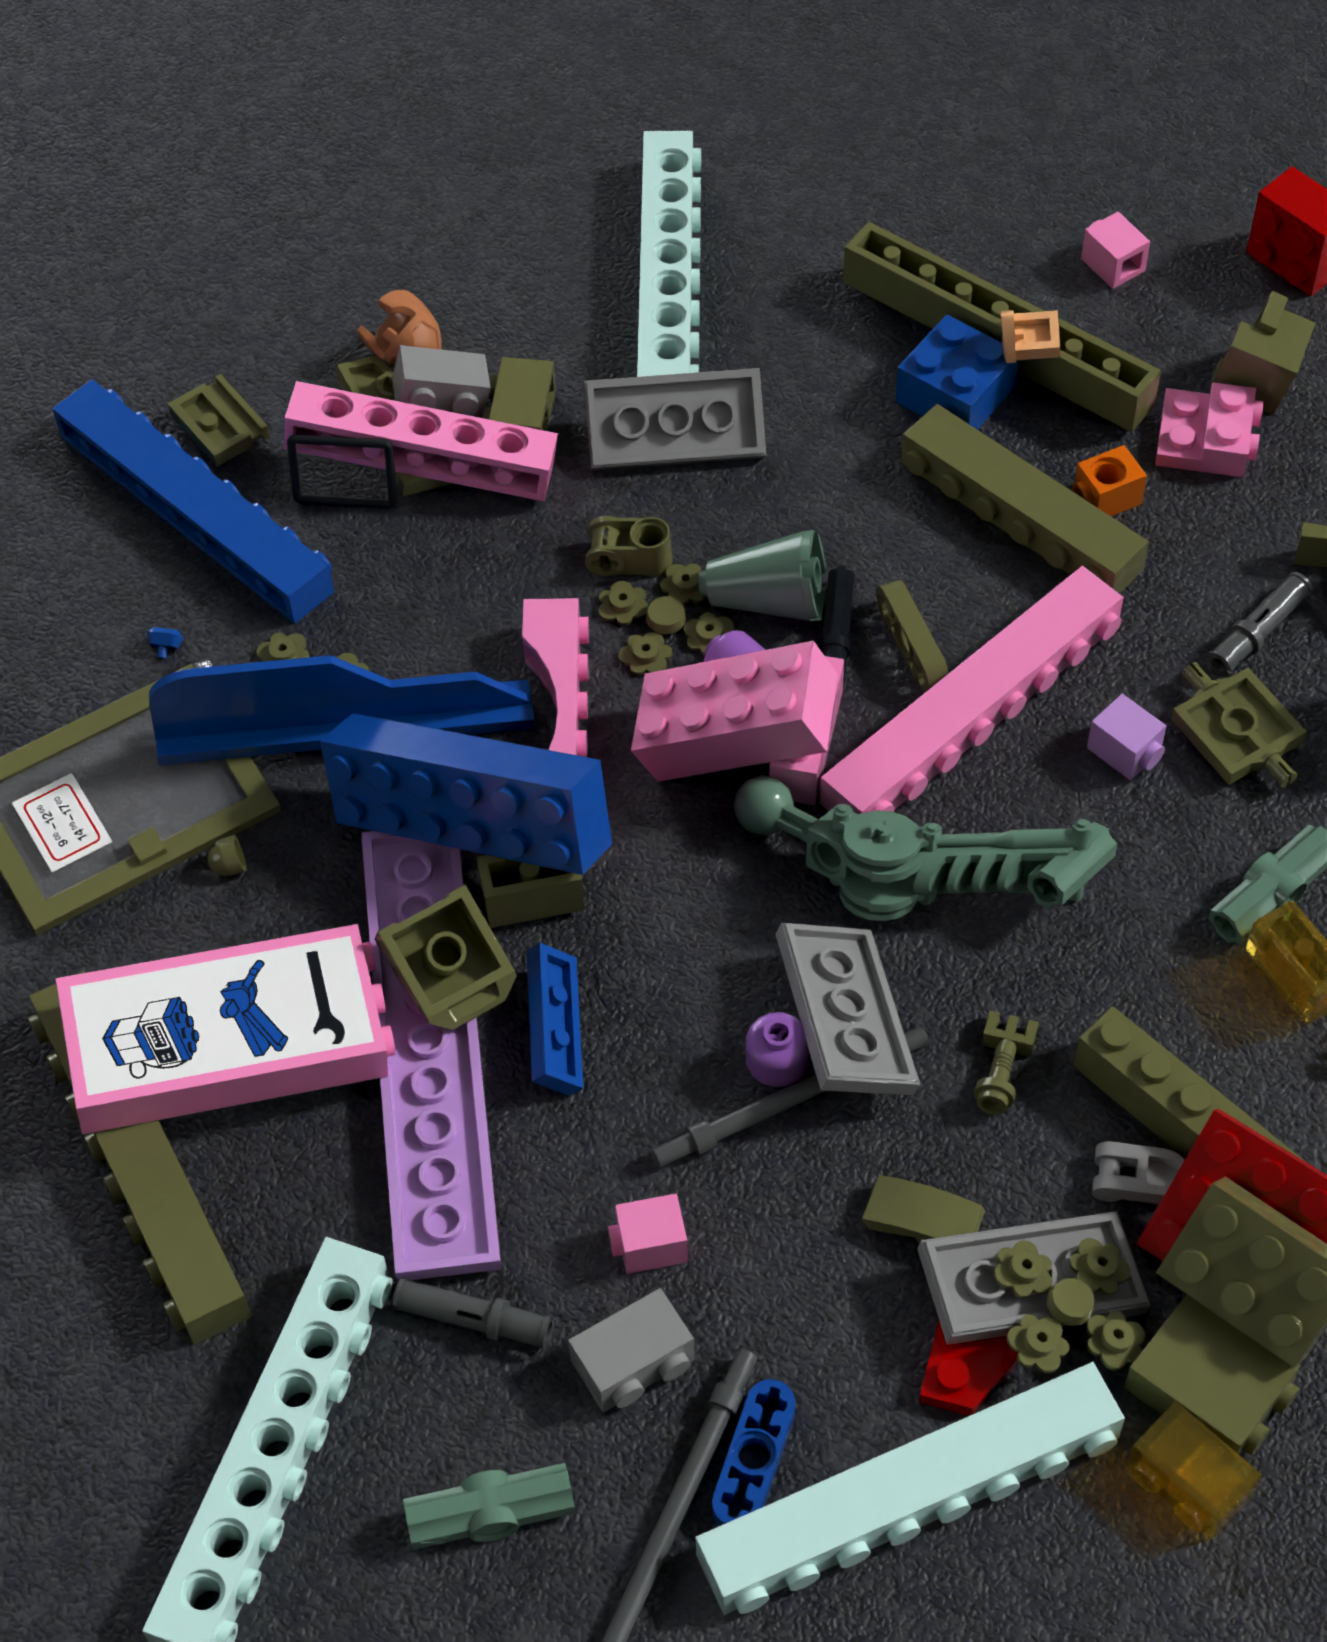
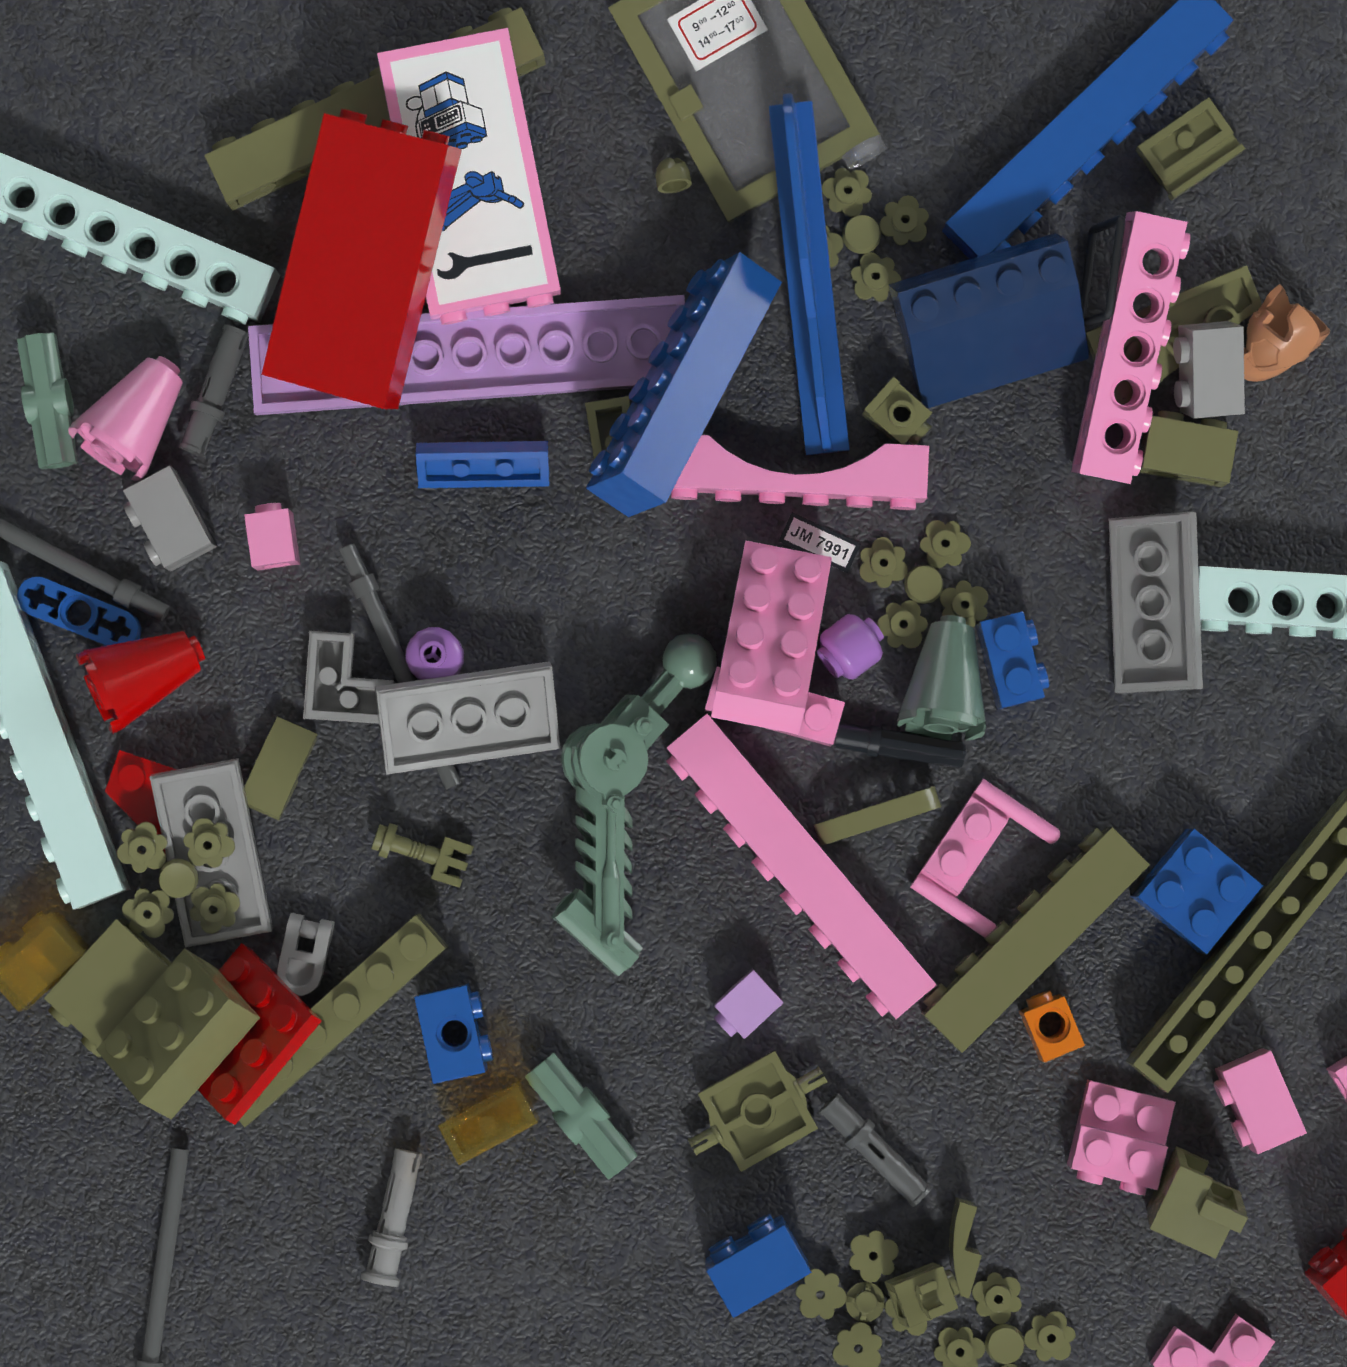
camera: 90 degrees right, 30 degrees up
(164, 640) = (923, 108): blue rock -> none
(319, 1115) = (361, 259): none -> red brick
(387, 556) = (991, 320): none -> dark blue slope
(448, 960) = (531, 367): olive slope -> none
(489, 640) = (880, 414): none -> olive brick
(514, 1397) = (131, 417): none -> bright pink cone
(621, 717) = (816, 539): none -> sticker
(632, 546) = (1002, 541): olive piece -> none
(739, 524) = (1010, 660): none -> blue brick
(825, 1157) = (329, 682): none -> light grey brick
(830, 1373) = (138, 674): none -> red cone
(935, 568) = (966, 846): none -> bright pink plate
(1030, 335) = (1215, 963): light nougat tile -> none
(1155, 321) = (1259, 1101): none -> bright pink brick
(1186, 1031) = (446, 1059): none -> blue brick

